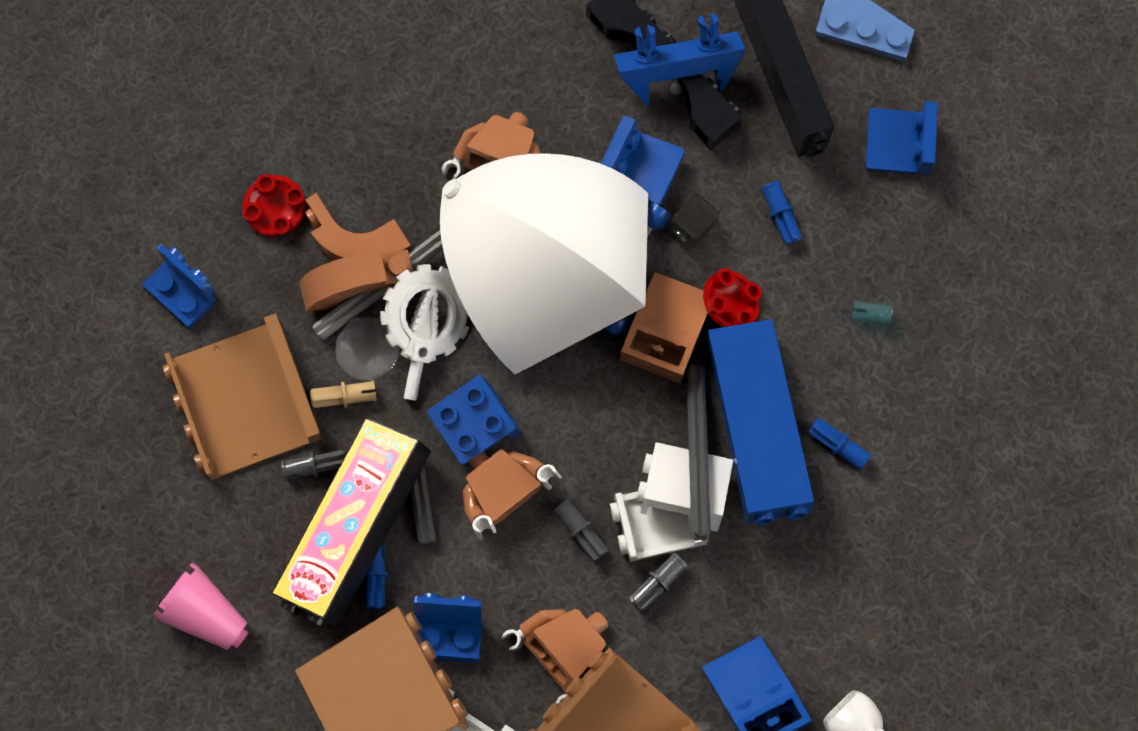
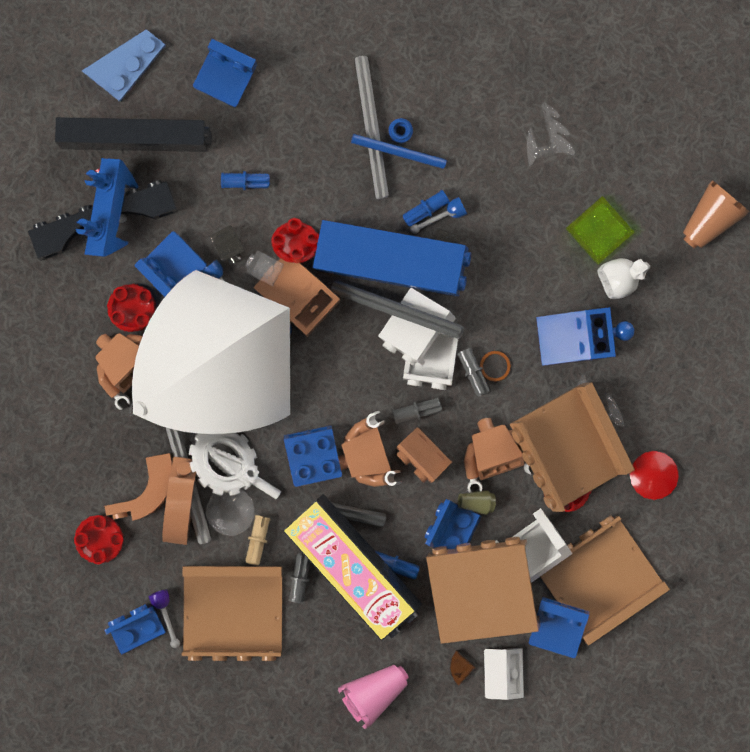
camera: 70 degrees left, 10 degrees up
(224, 305) = (161, 600): none -> hinge
(274, 710) = (460, 667): none -> reddish brown tile
(494, 649) = (479, 502): none -> olive cone
(526, 554) = (423, 456): none -> nougat slope
(572, 134) = (131, 307): none -> red dish
(677, 626) = (508, 365): none -> dark orange piece
(683, 273) = (263, 268): none -> clear bracket
(853, 480) = (454, 209): none -> hinge
(874, 312) = (343, 145): clear light blue pin -> none
(897, 382) = (398, 151): none -> blue bar
(904, 674) = (599, 230): none -> clear neon green plate
(911, 339) = (371, 126): none -> light grey axle
(927, 367) = (400, 123): none -> blue plate
(992, 579) = (558, 143): none -> clear piece

